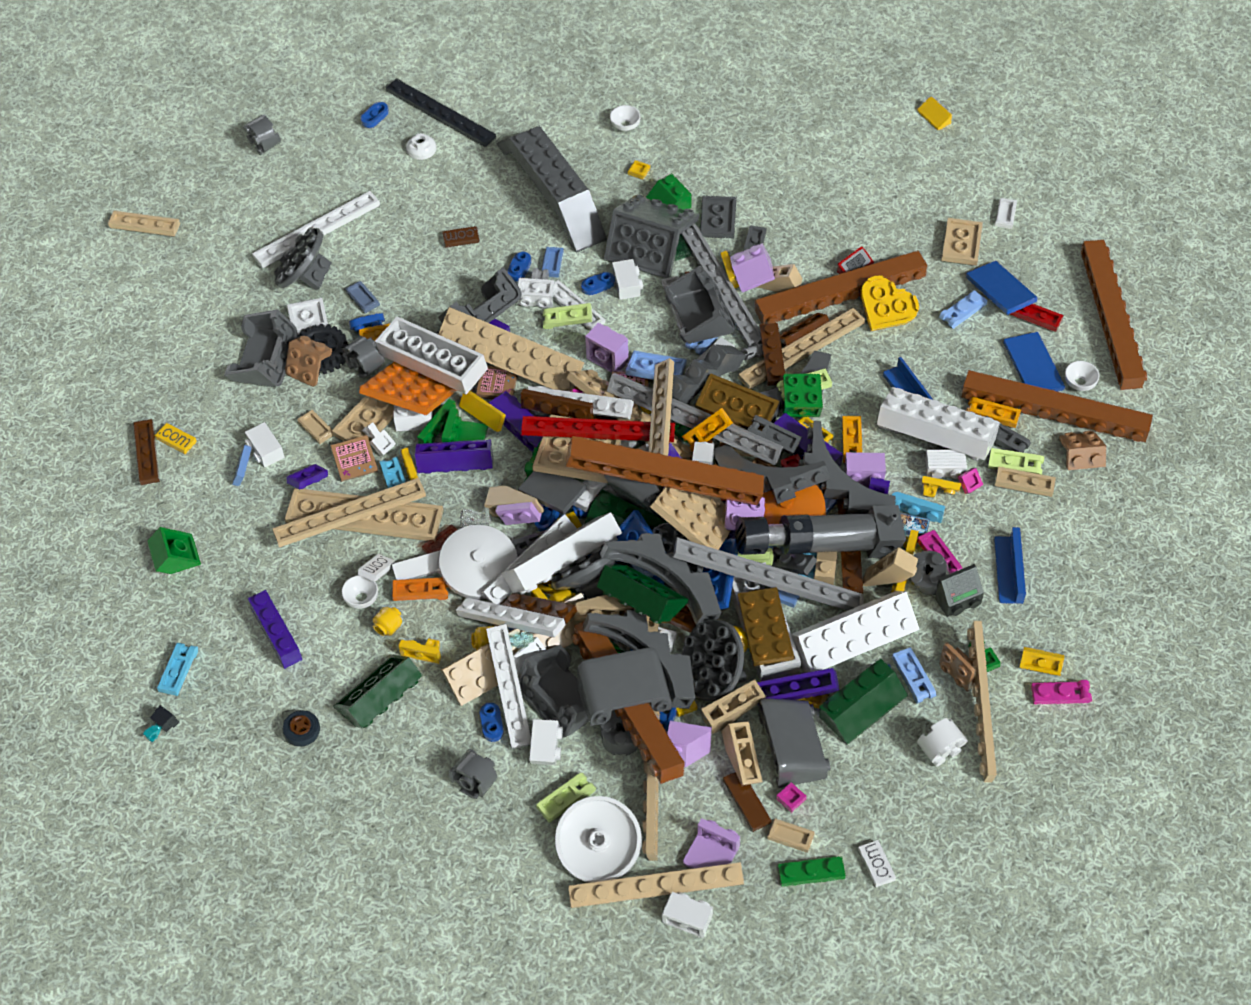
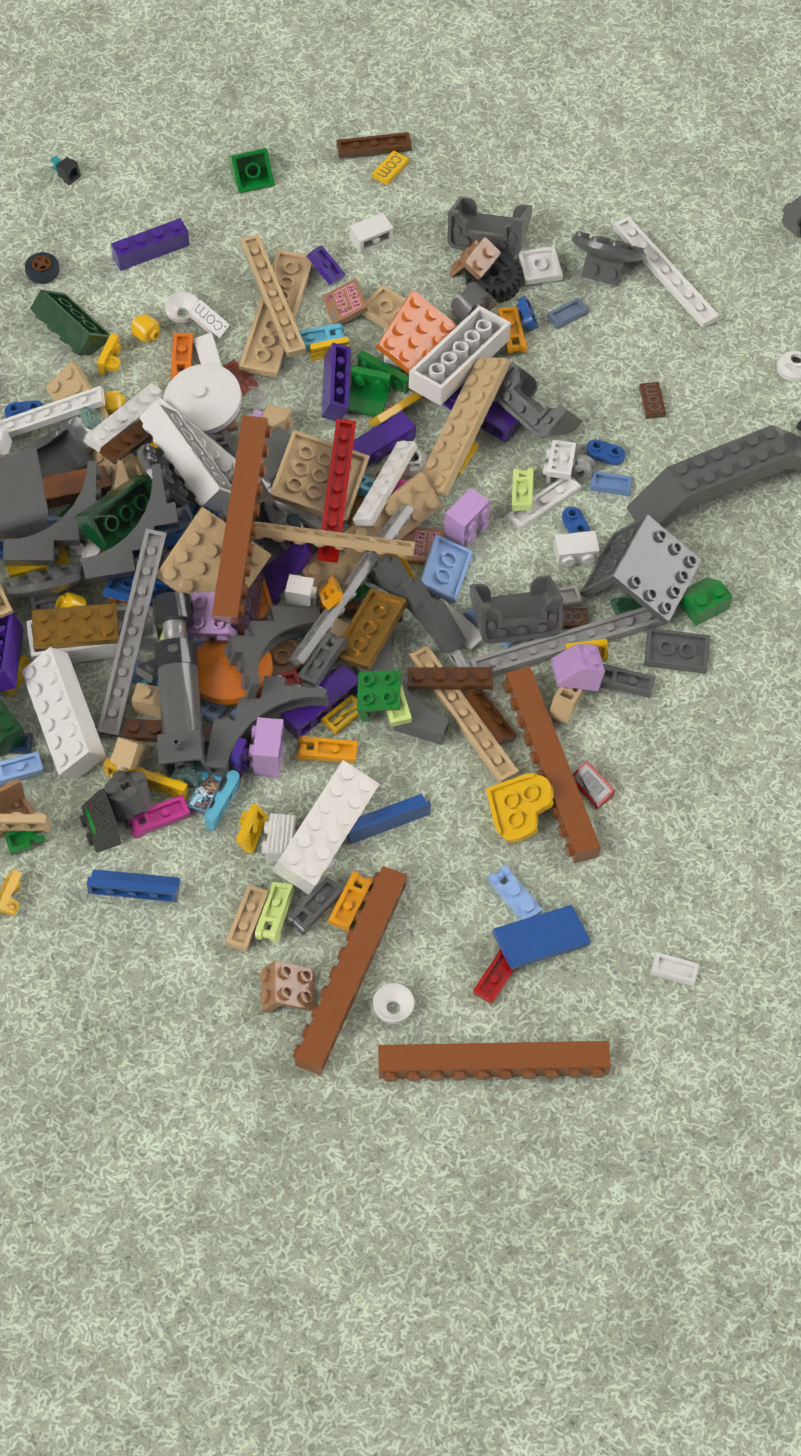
camera: 90 degrees right, 5 degrees up
(144, 223) = (677, 129): tan plate -> none
(177, 669) = (122, 178): medium azure plate -> none
(242, 465) = (346, 215): medium blue tile -> none
(315, 426) = (395, 275): tan tile -> none
(380, 440) = (365, 324): white plate -> none
(495, 382) = (431, 425): medium nougat tile -> none
(556, 405) = (376, 466): reddish brown plate -> none
(639, 169) = (756, 575): yellow tile -> none
(962, 241) = (624, 907): tan plate -> none
(970, 480) = (253, 859): dark pink plate -> none
(1033, 361) = (424, 959): blue tile -> none

